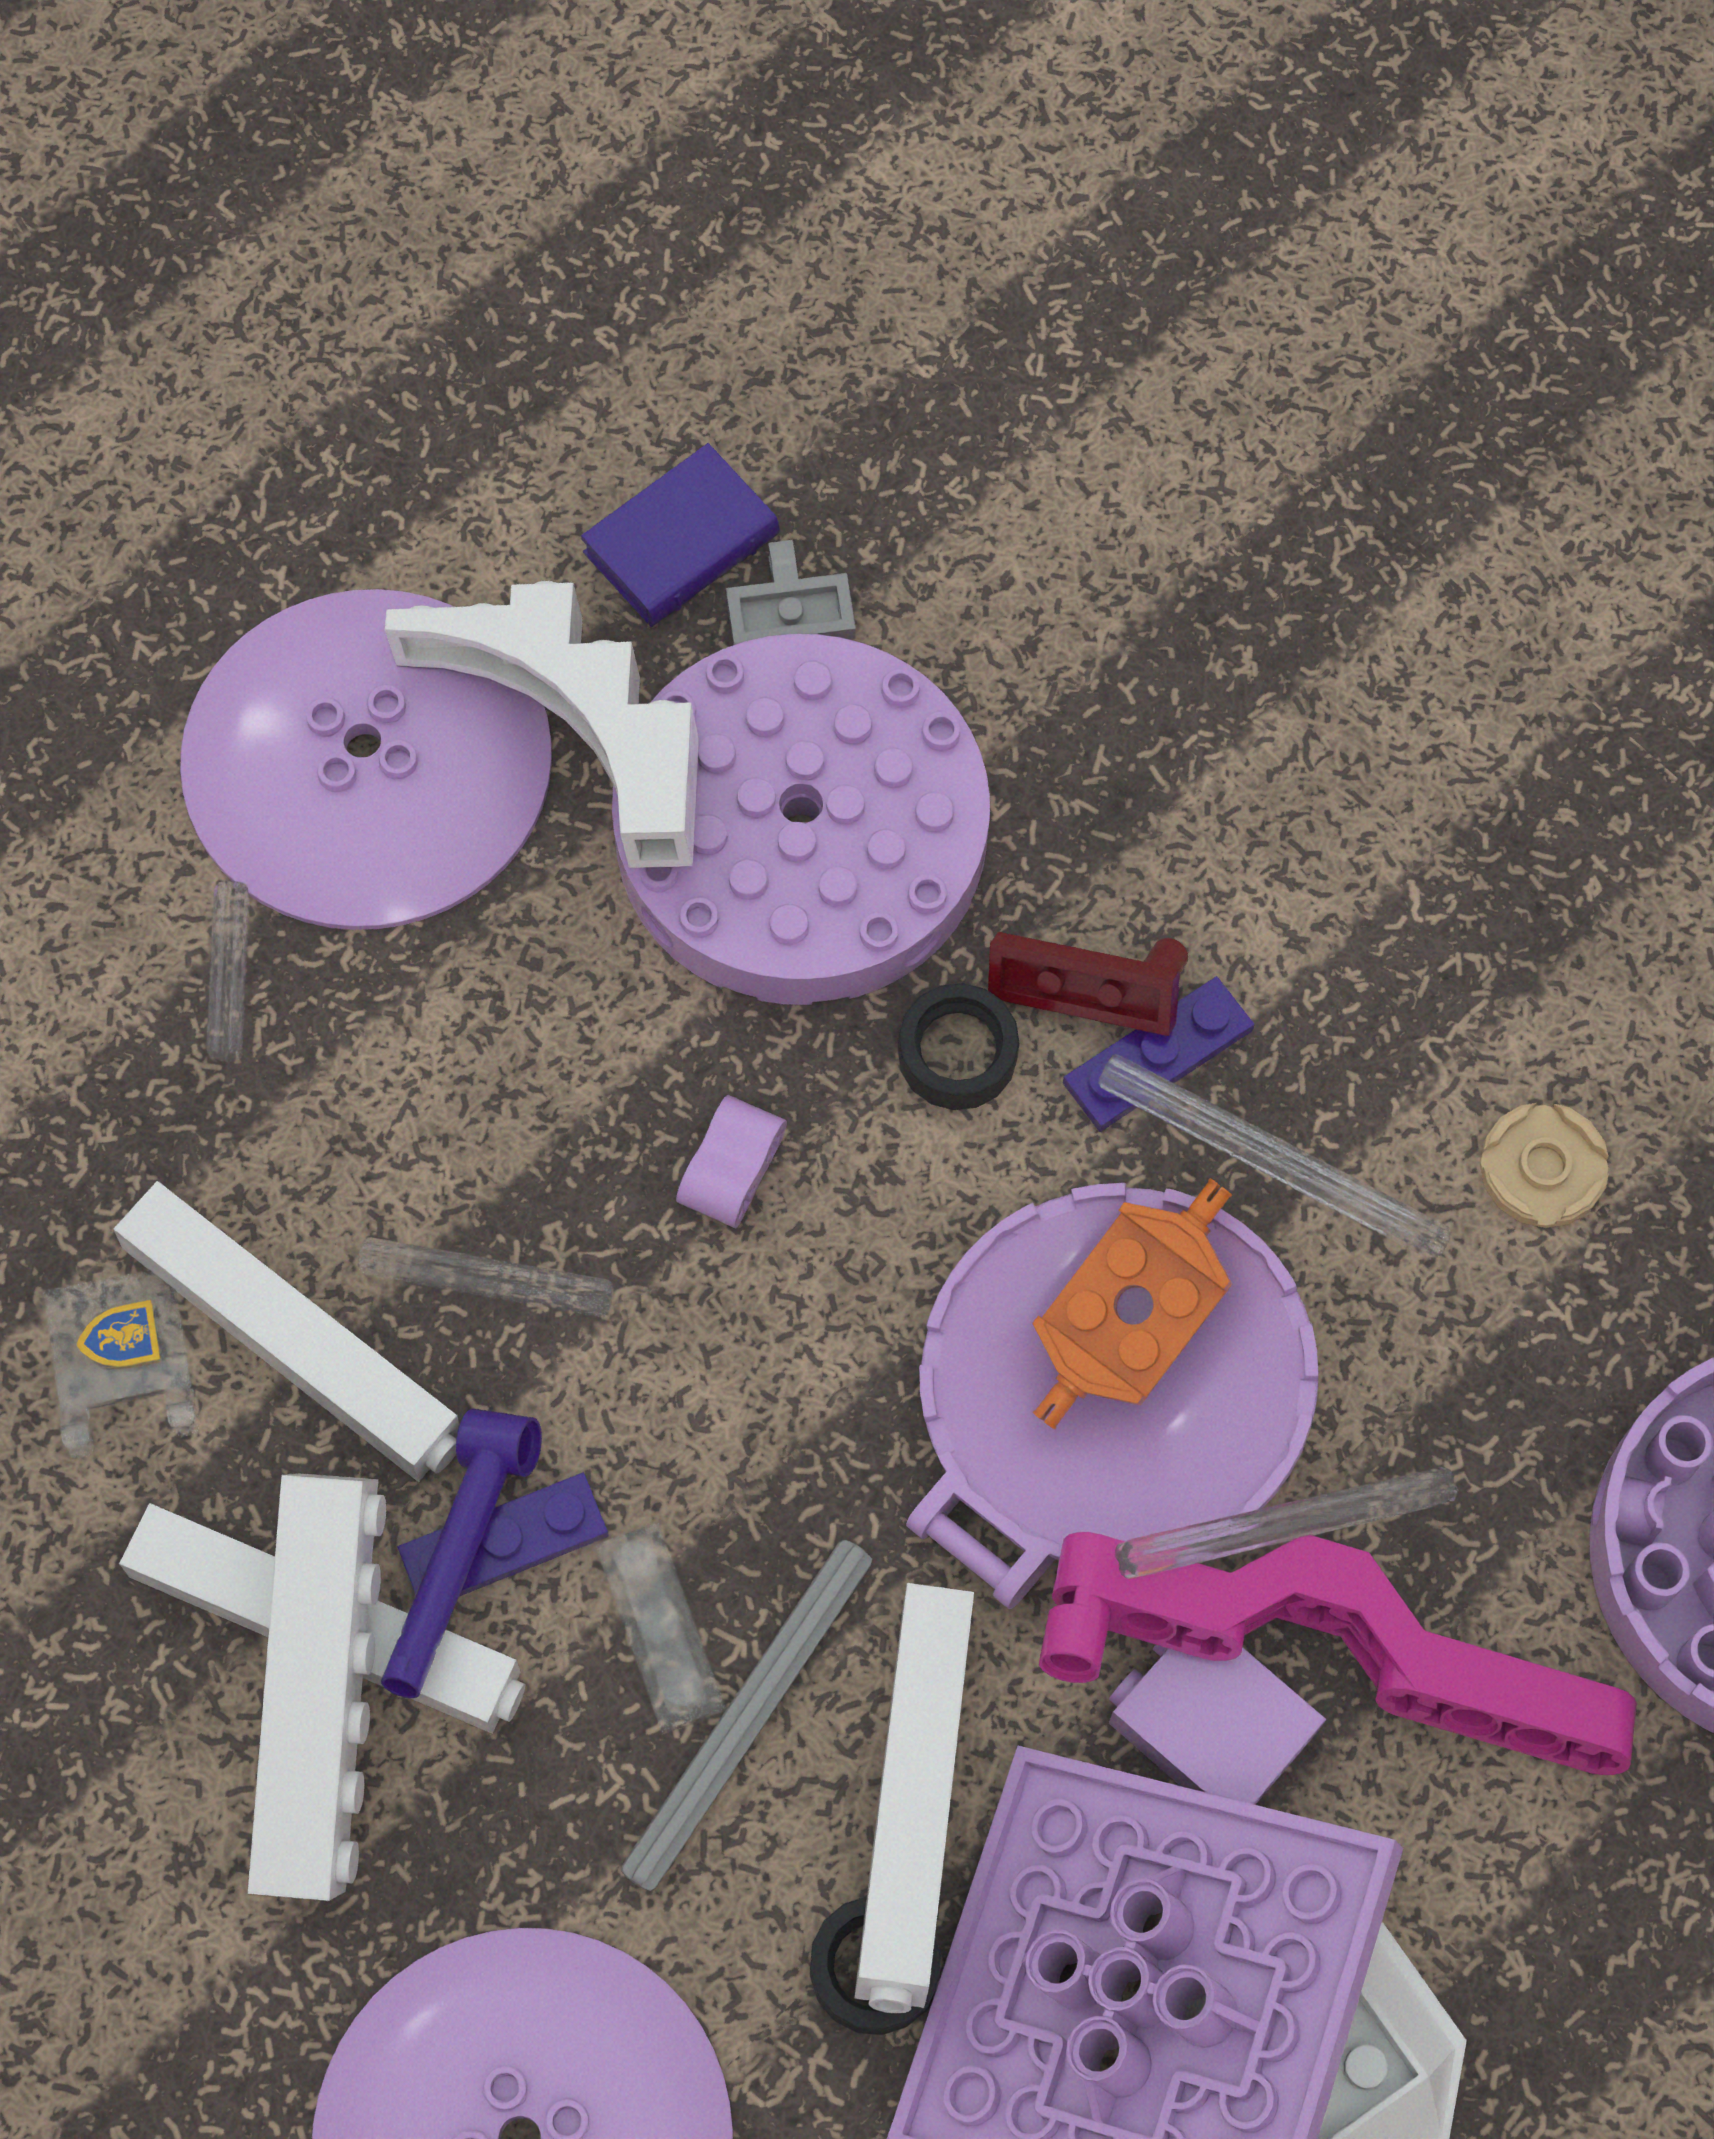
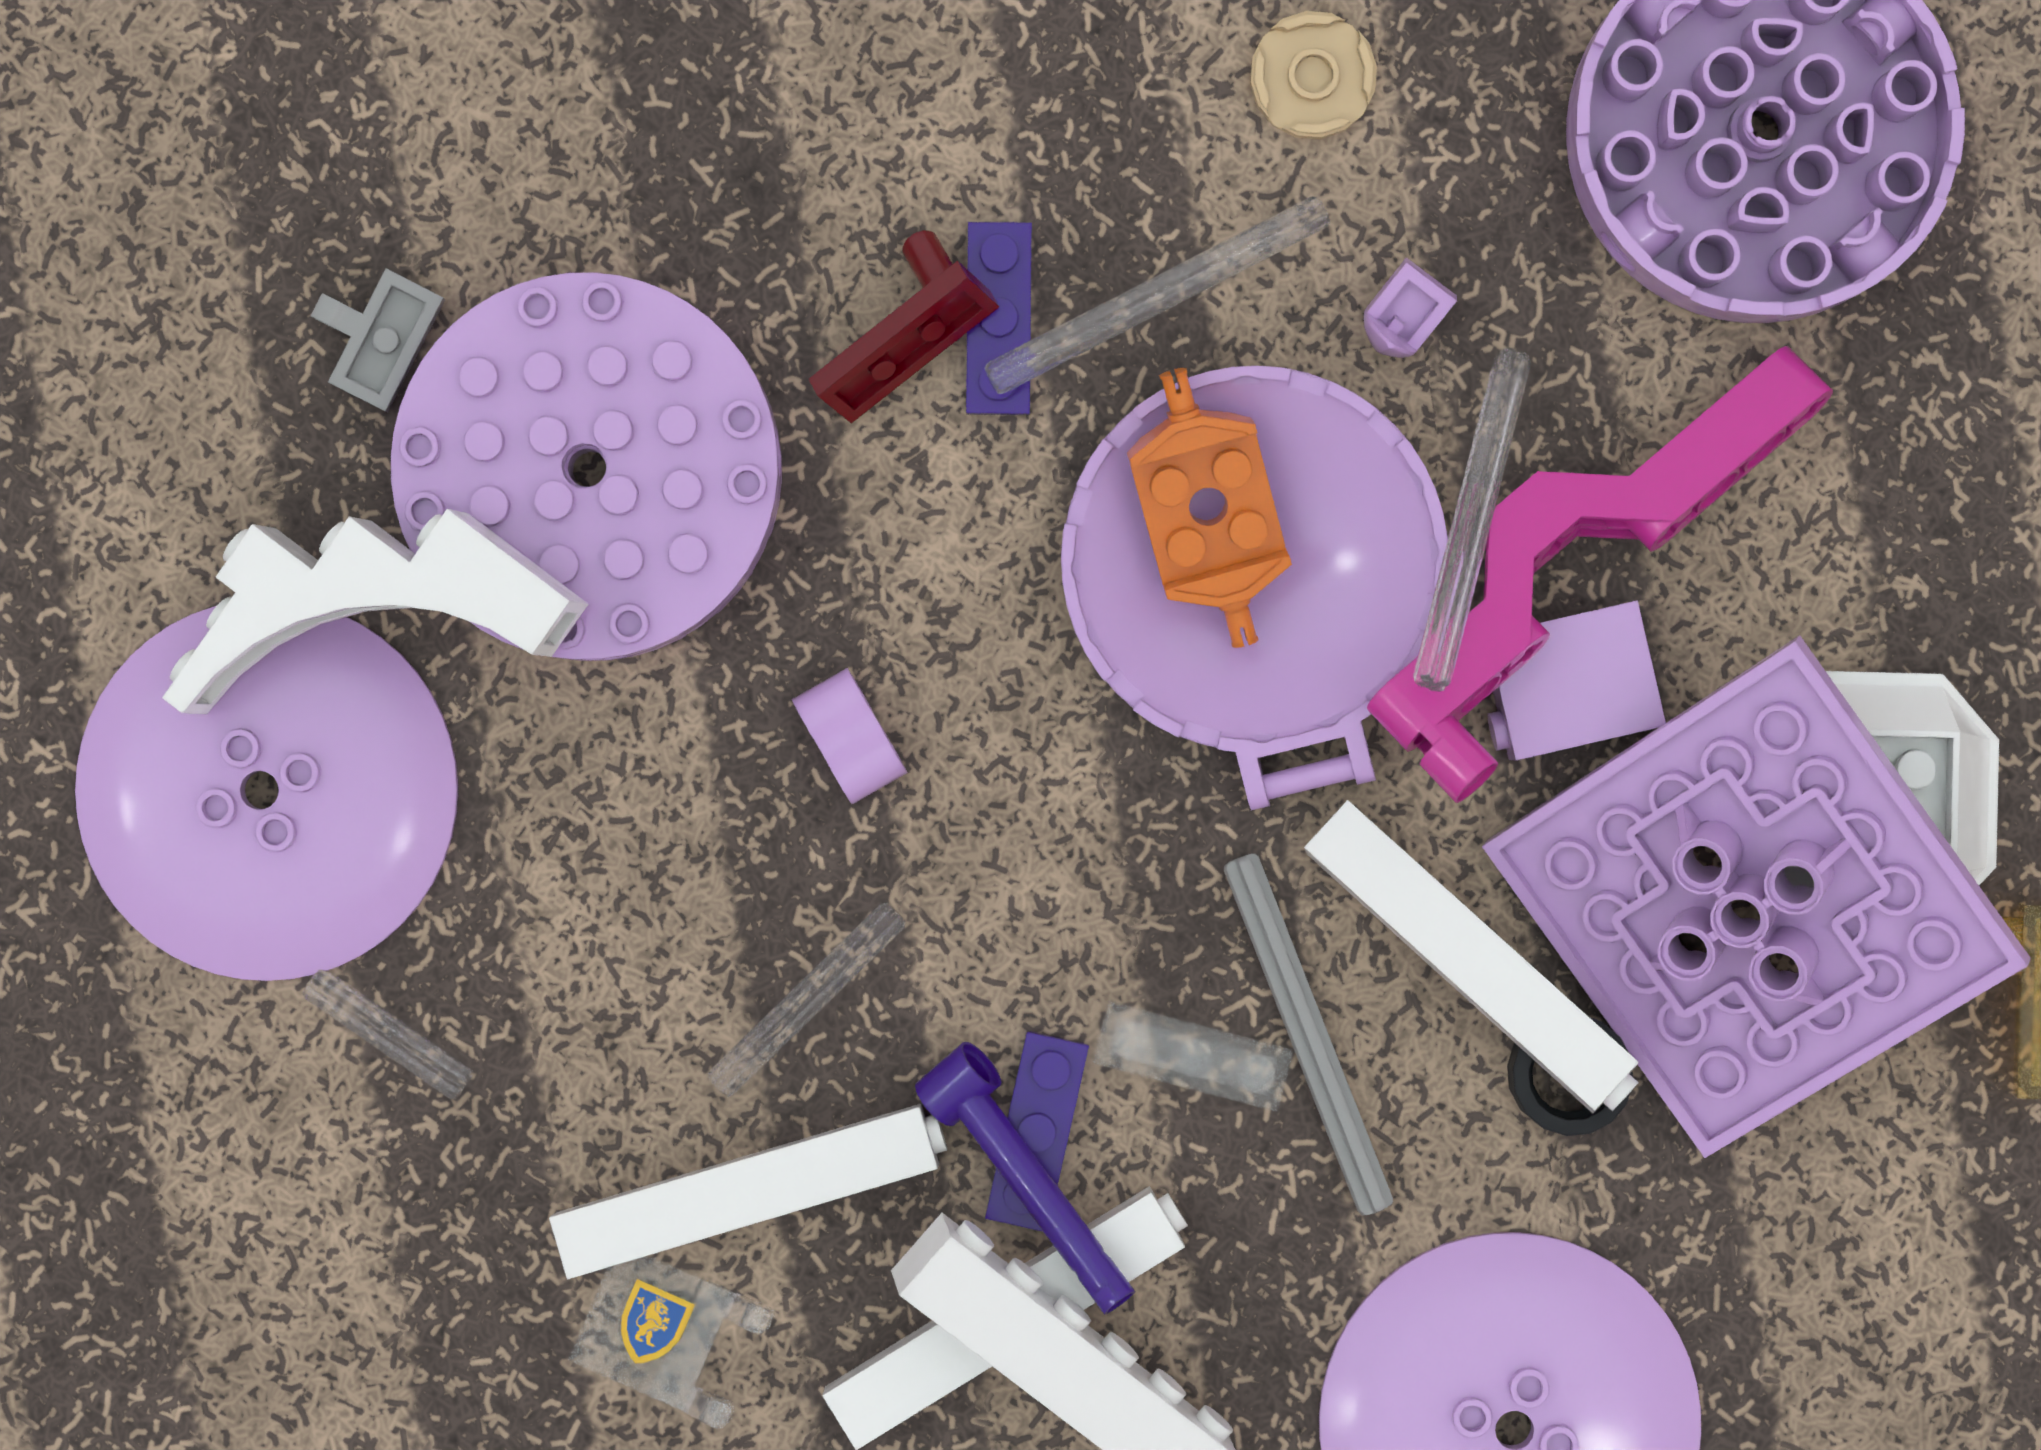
camera: 50 degrees left, 20 degrees up
(680, 534) = (244, 382): dark purple piece -> none
(951, 1000) = (848, 444): black tyre -> none
(1415, 1365) = (1406, 311): none -> lavender plate

